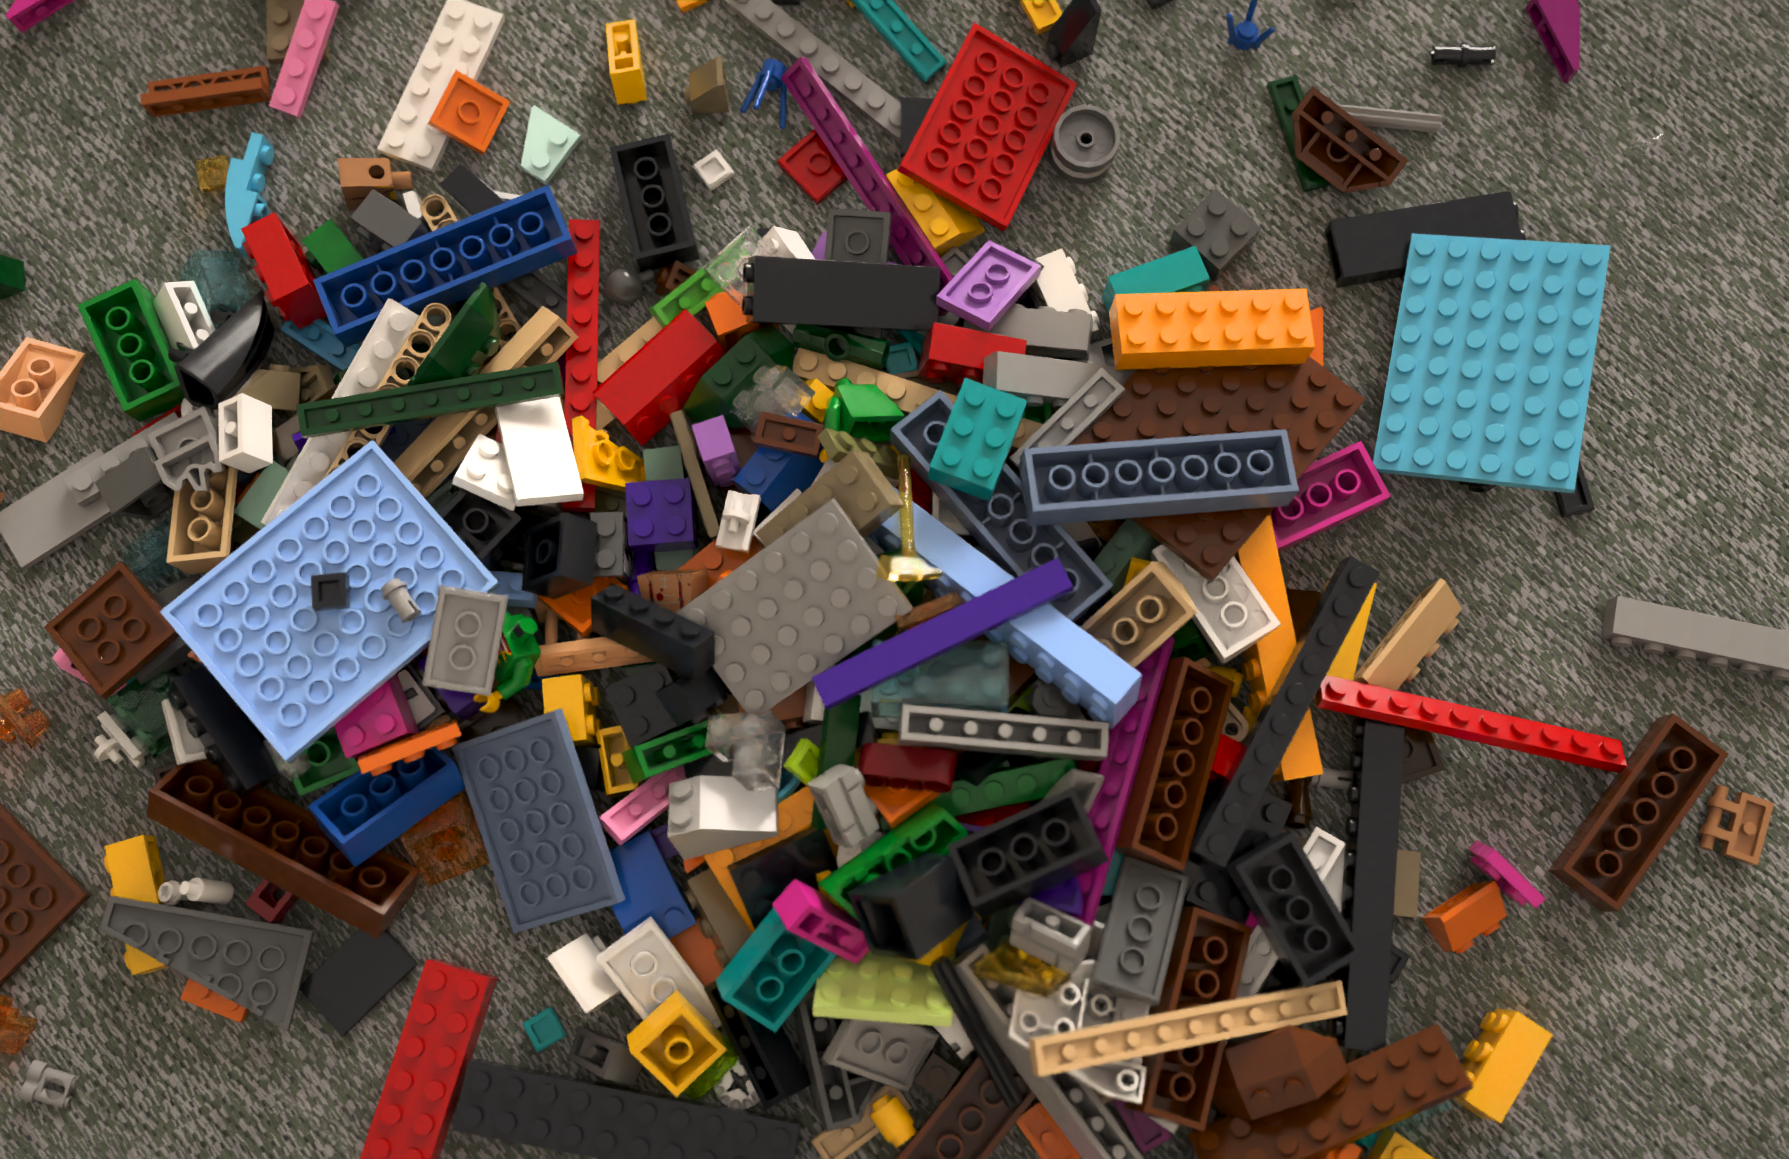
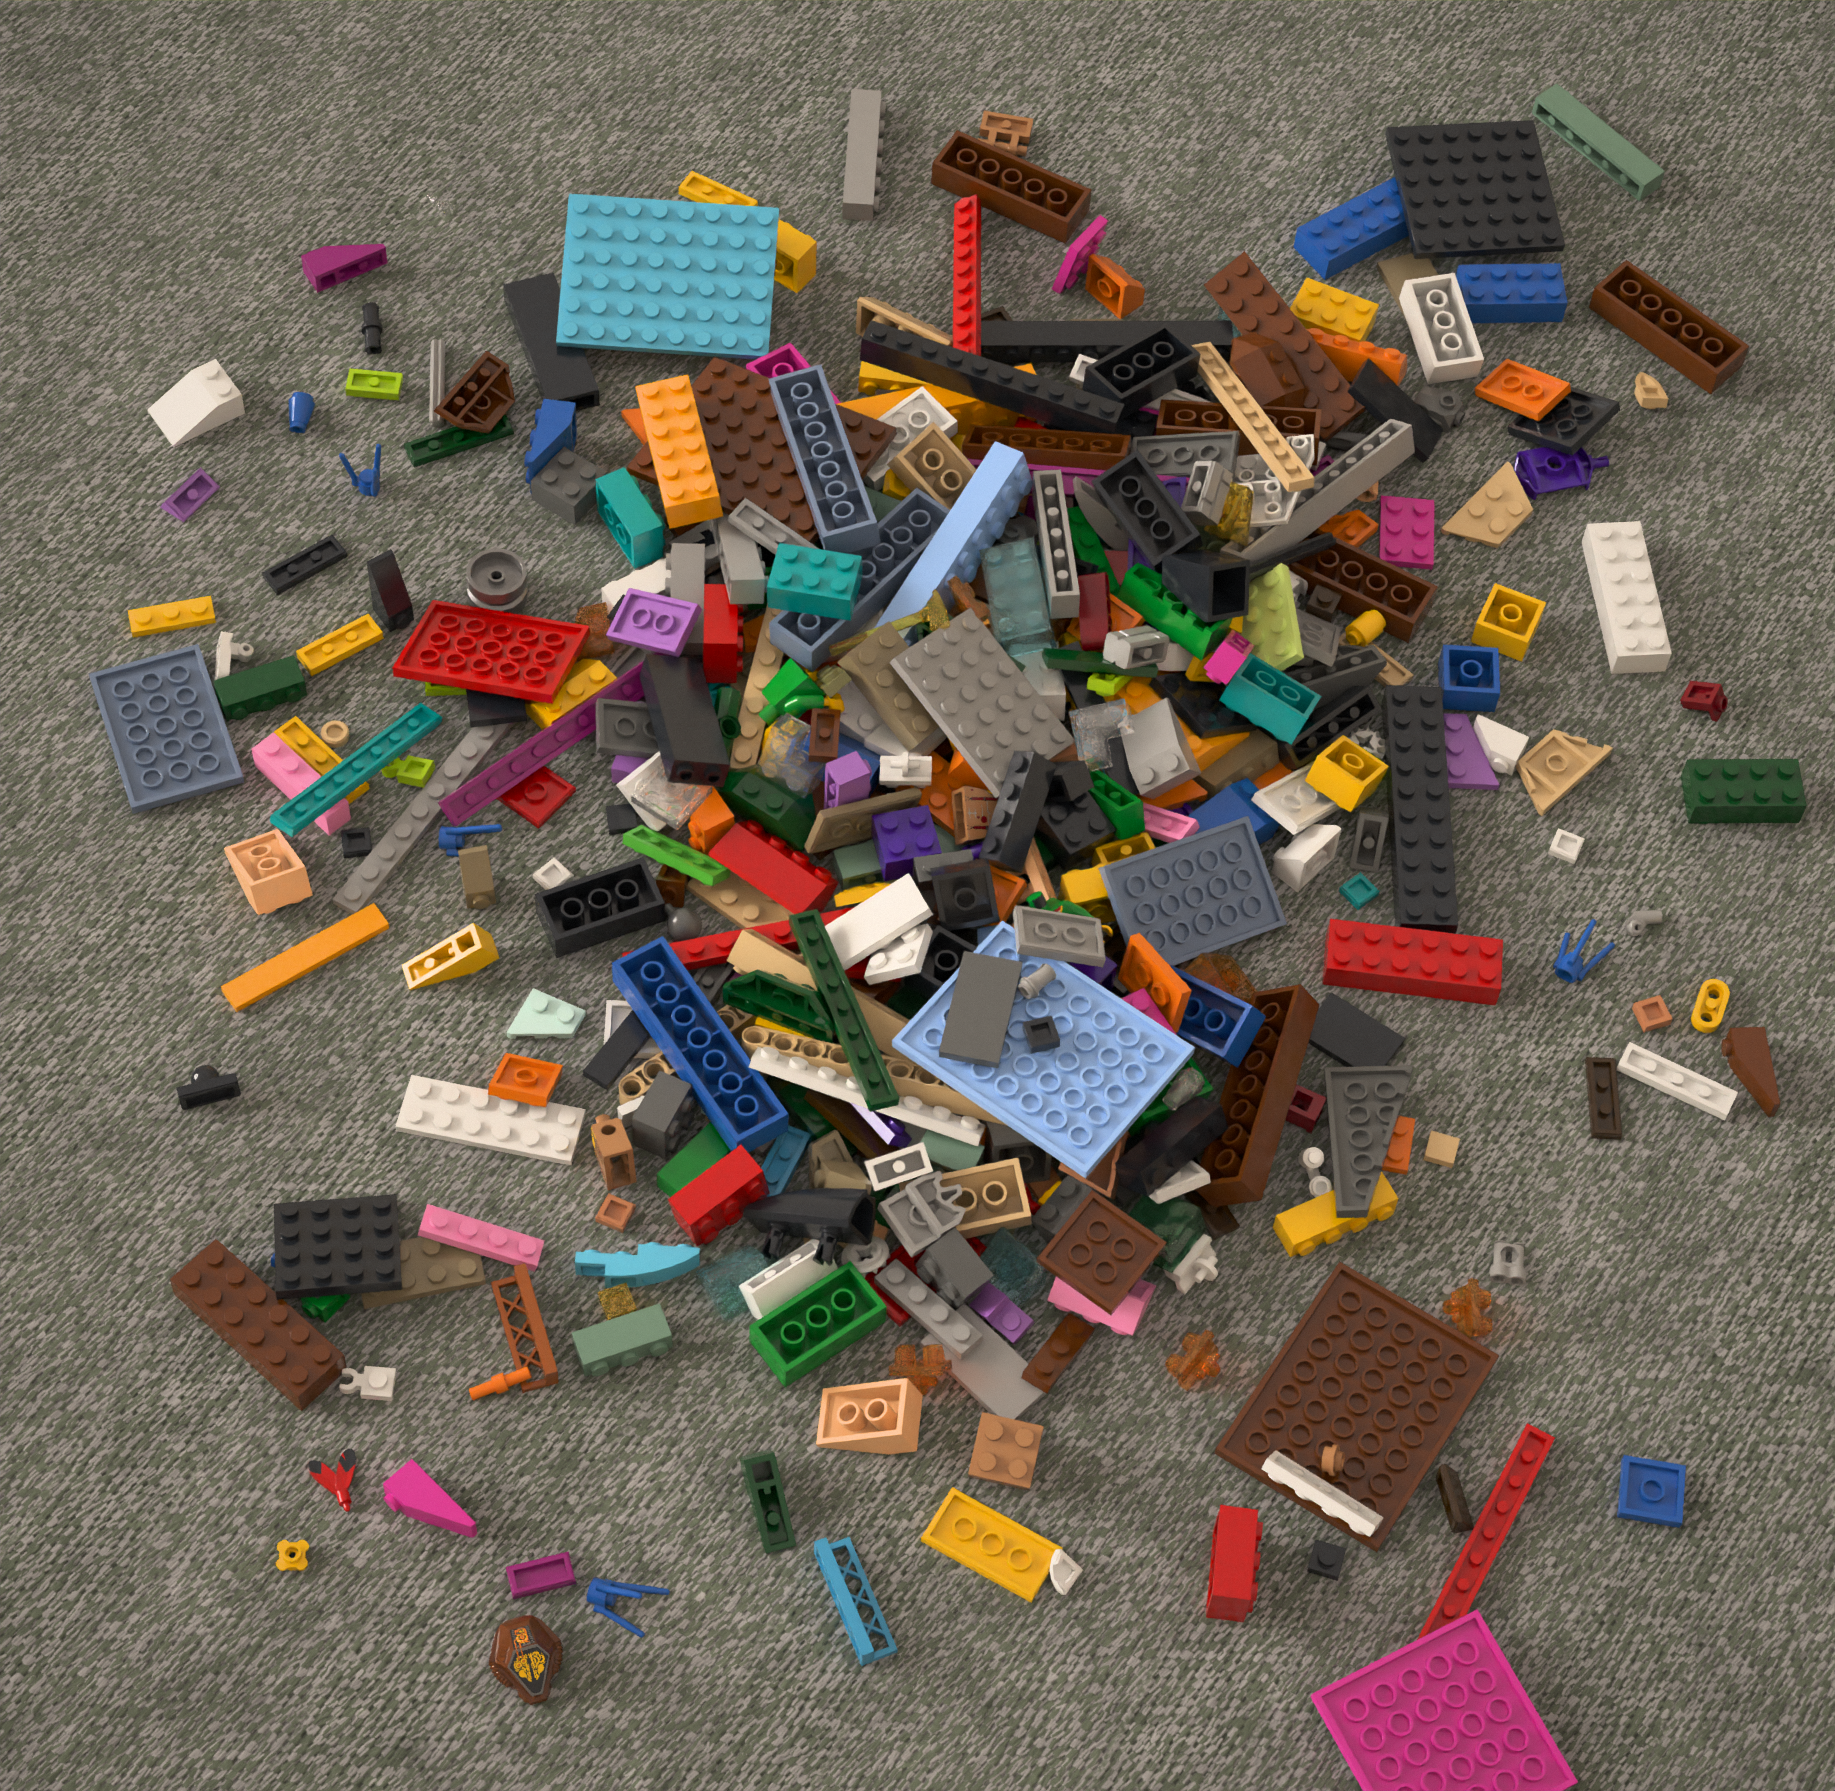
camera: 105 degrees left, 20 degrees down
(46, 573) = (1058, 1353): none -> reddish brown plate
(67, 440) = (932, 1365): none -> clear orange hips
(115, 535) = (1002, 1313): none -> medium lavender slope
(157, 62) = (500, 1383): none -> orange bar
(170, 172) = (622, 1340): none -> sand green brick
(201, 1044) = (1441, 1149): none -> tan tile
(315, 186) = (615, 1213): none -> nougat tile
(383, 535) = (980, 1009): none -> dark grey tile
(860, 45) = (412, 771): none -> lime plate
(942, 633) = (987, 583): dark purple tile -> none
(1027, 236) = (597, 643): none -> clear orange wing
(1282, 217) = (554, 430): none -> blue slope
(1382, 51) = (374, 384): none -> lime plate
(1501, 1062) = (1211, 248): yellow brick -> none
(1535, 519) = (794, 257): none -> yellow brick
(1643, 455) = (708, 191): none -> yellow plate

